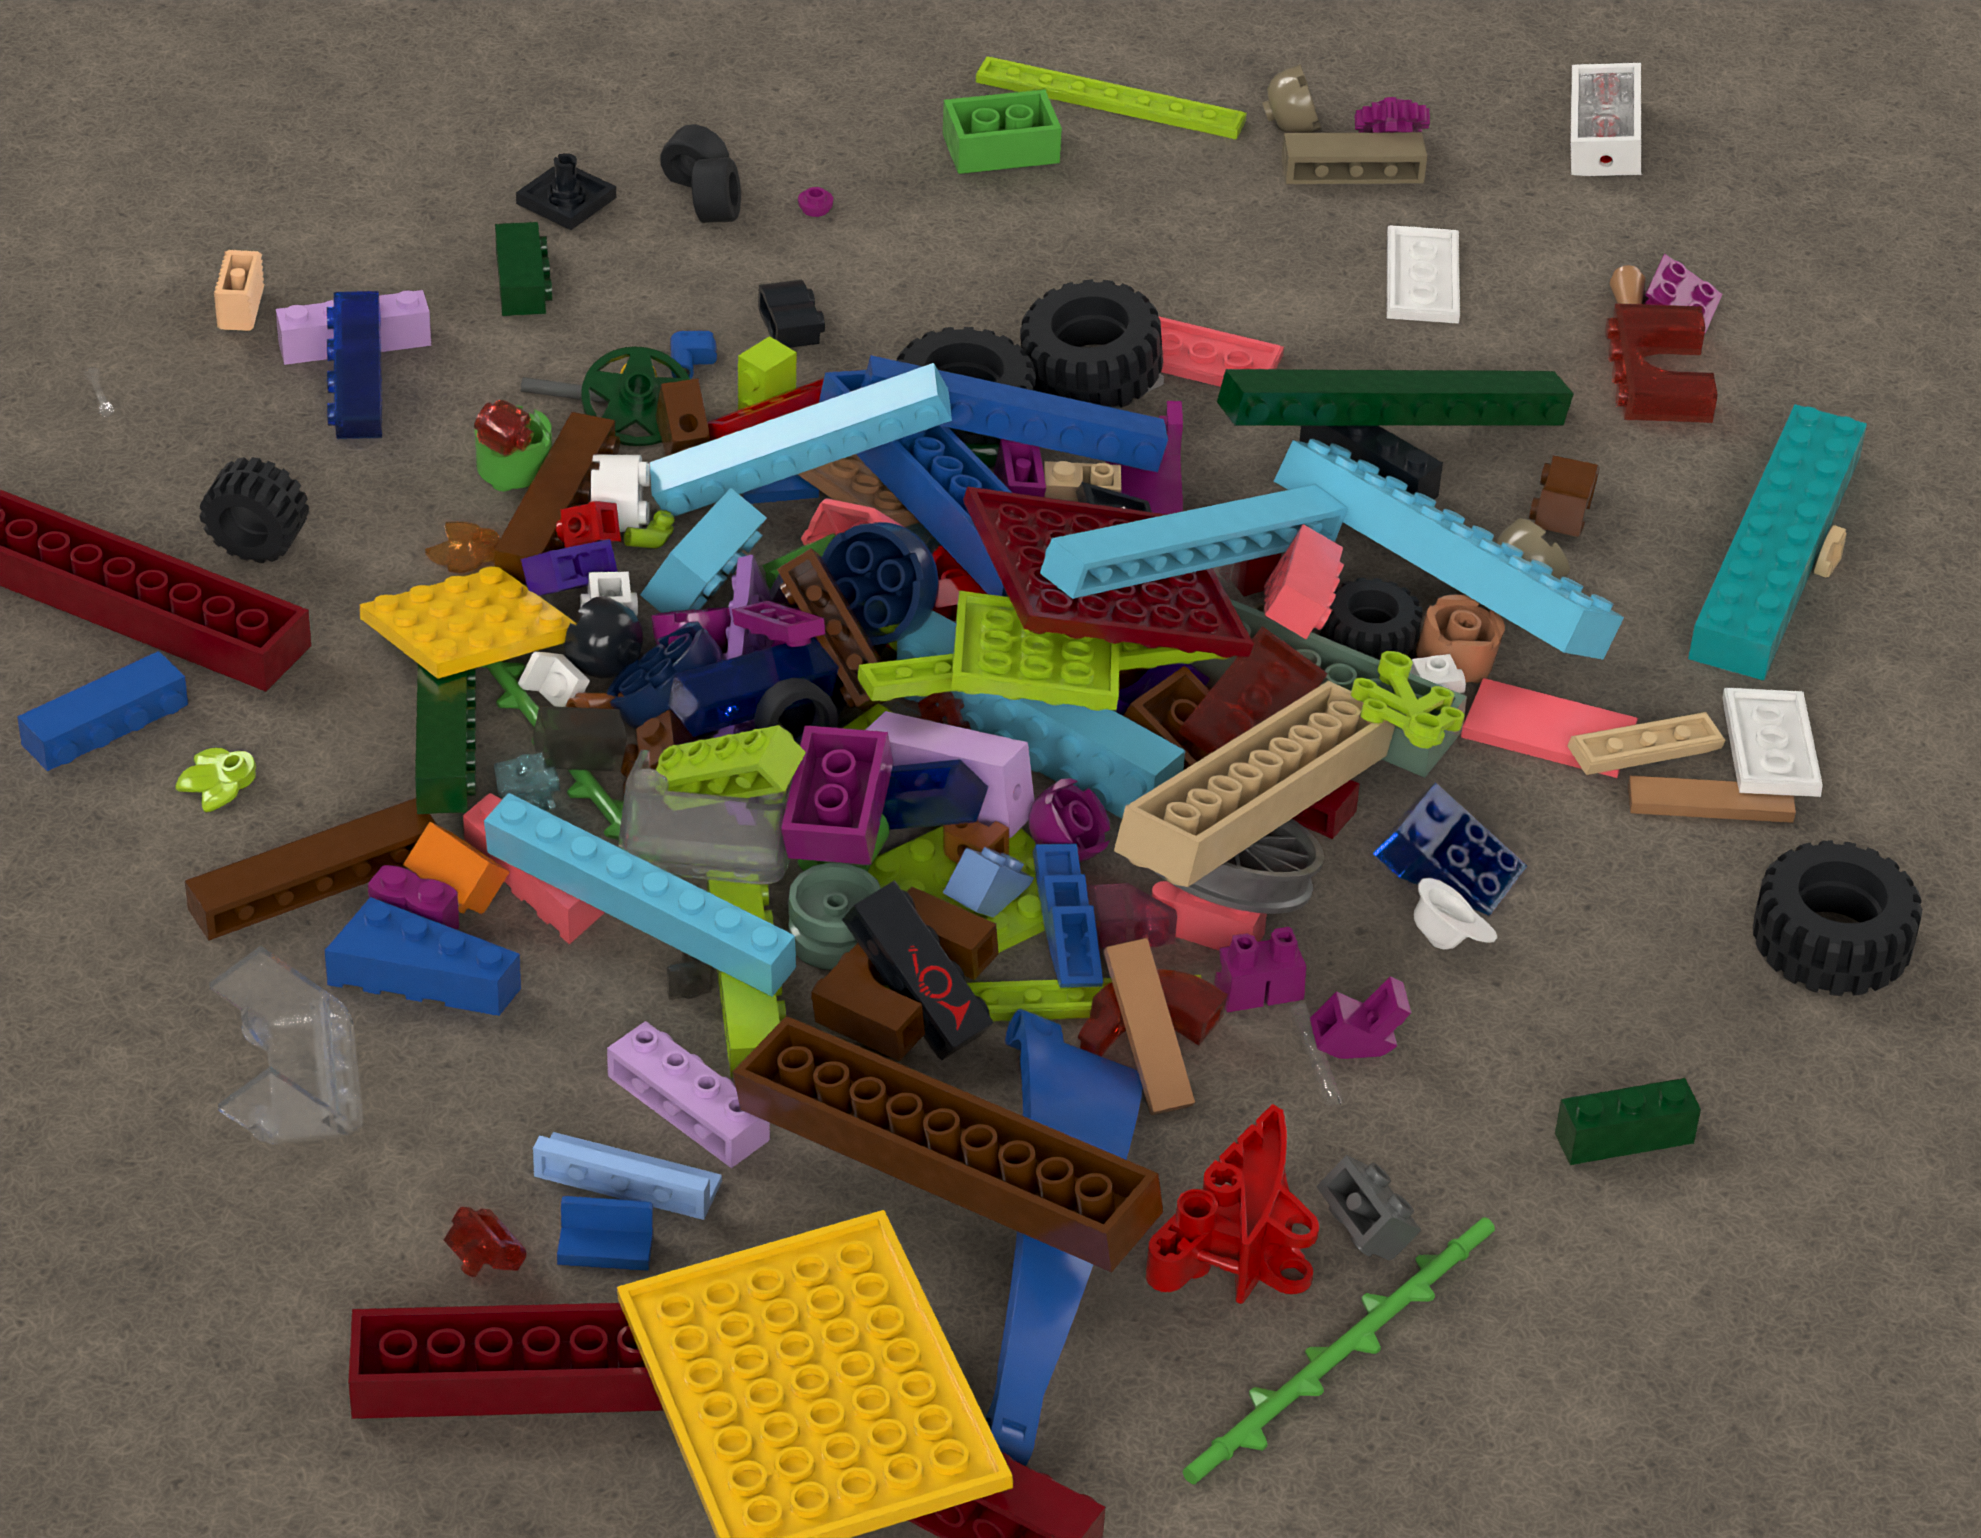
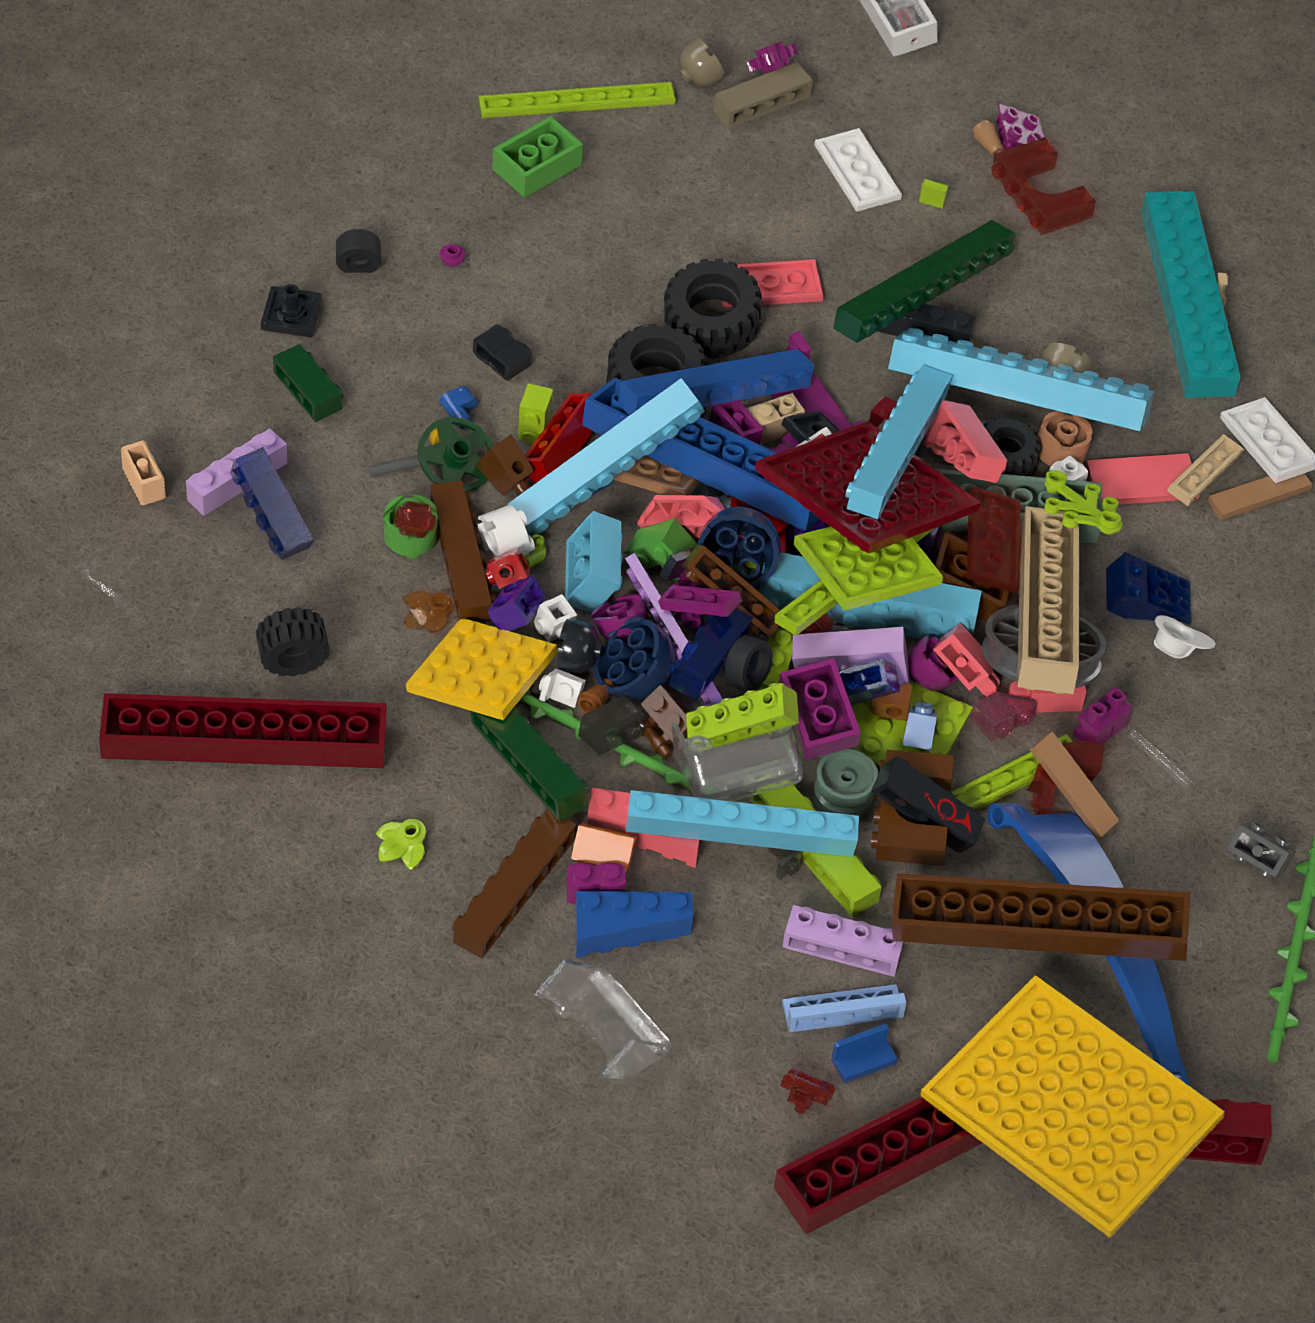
camera: 30 degrees left, 10 degrees up
(103, 711) = (301, 826): blue brick -> none
(528, 780) = (601, 769): clear light blue brick -> none
(716, 190) = (391, 273): black tyre -> none
(1067, 916) = (974, 729): blue slope -> none
(1100, 815) = (966, 660): none -> coral brick
(1238, 1225) = (1211, 880): red piece -> none
(1361, 1029) = (1182, 730): magenta brick -> none
(1501, 325) = (933, 193): none -> lime tile
(1565, 495) = (1052, 309): reddish brown brick -> none

